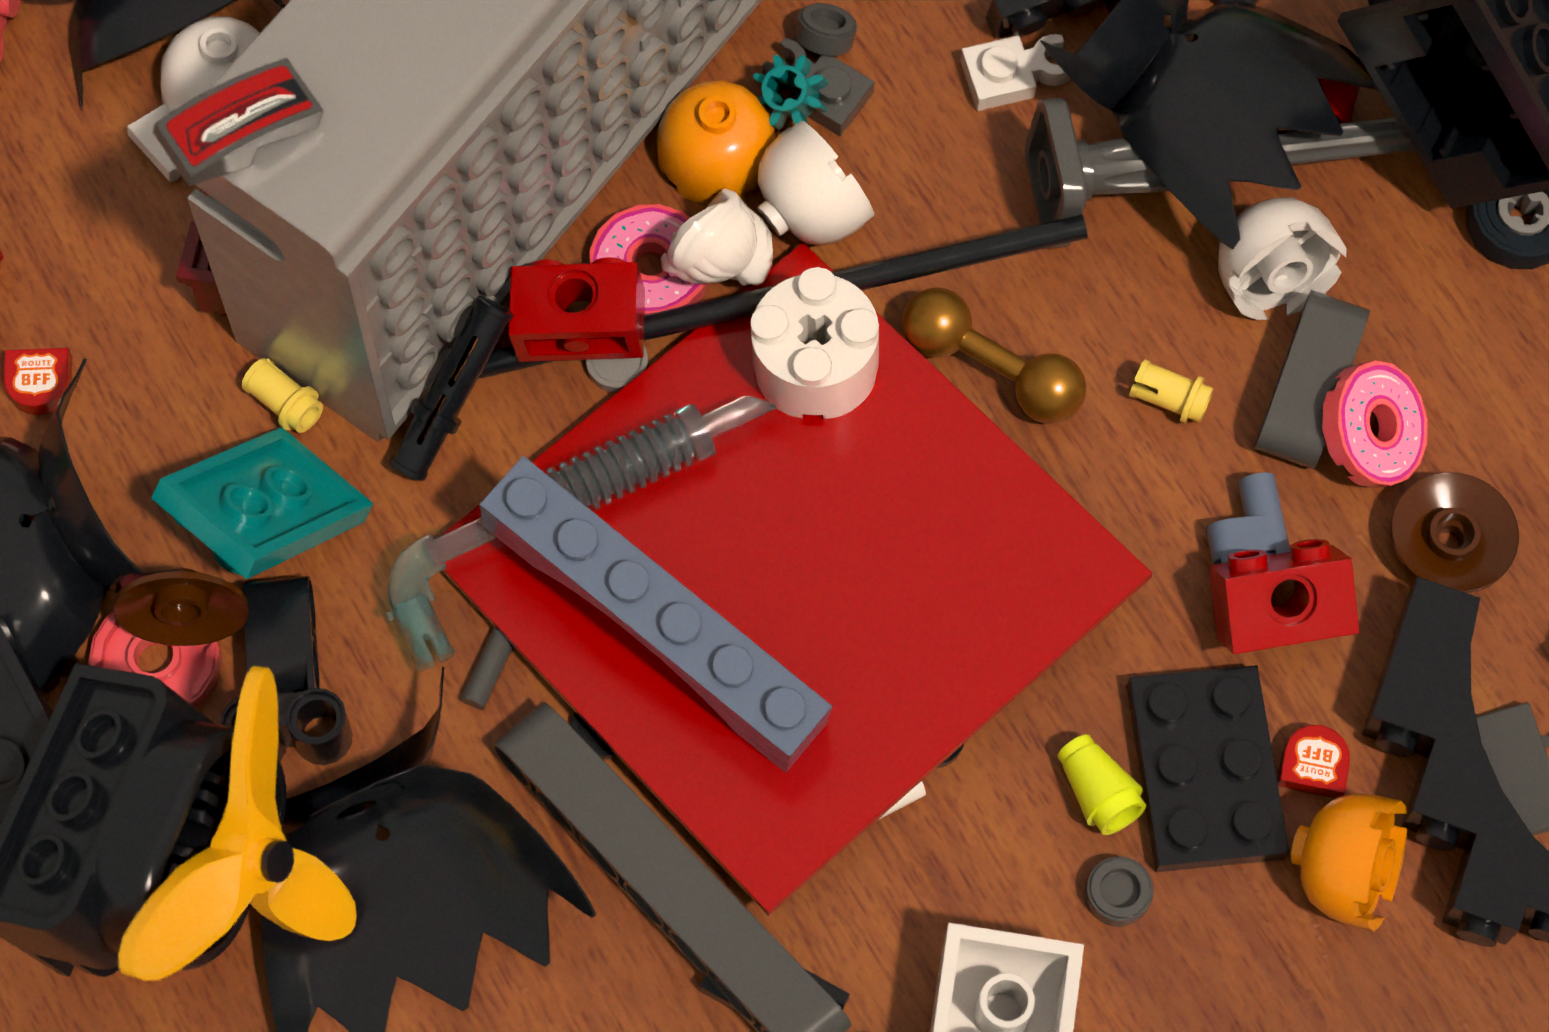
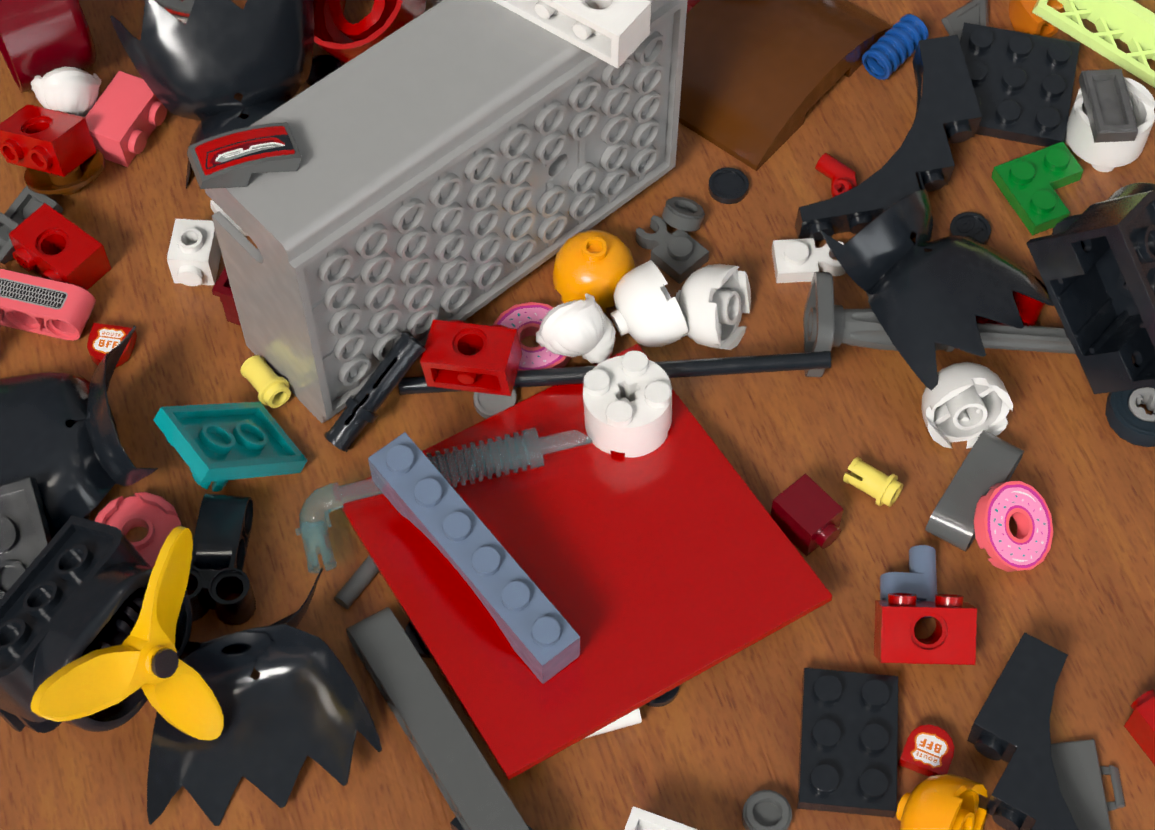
camera: 15 degrees right, 10 degrees down
(126, 214) = (194, 252): none -> white brick
(181, 608) = (156, 497): reddish brown dish -> none
(791, 76) = (654, 236): teal gear -> none
(899, 167) = (714, 305): none -> white cylinder
(1047, 386) = (720, 410): pearl gold piece -> none
(1092, 458) = (807, 515): none -> dark red brick
(1101, 786) = (768, 739): neon yellow cone -> none
(1468, 511) = (1066, 595): reddish brown dish -> none

